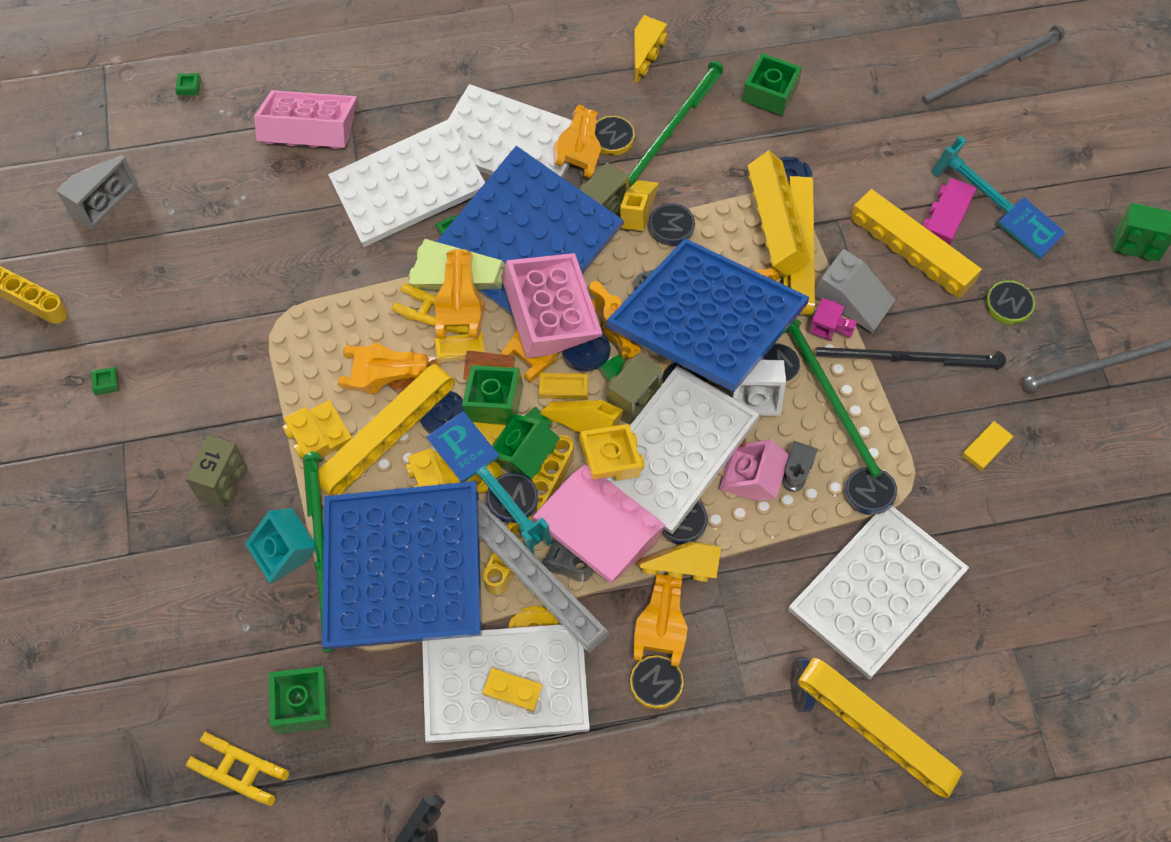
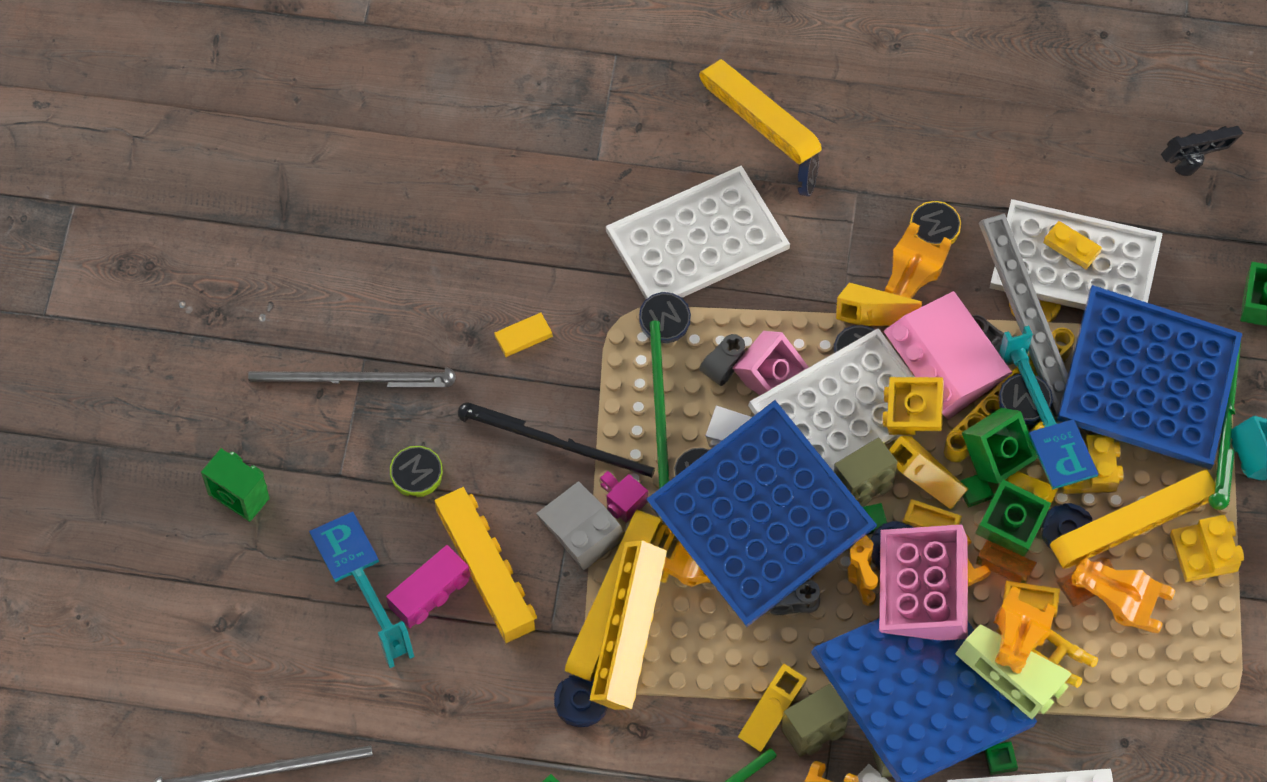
camera: 160 degrees left, 0 degrees up
(671, 224) = (746, 670): tile -> none

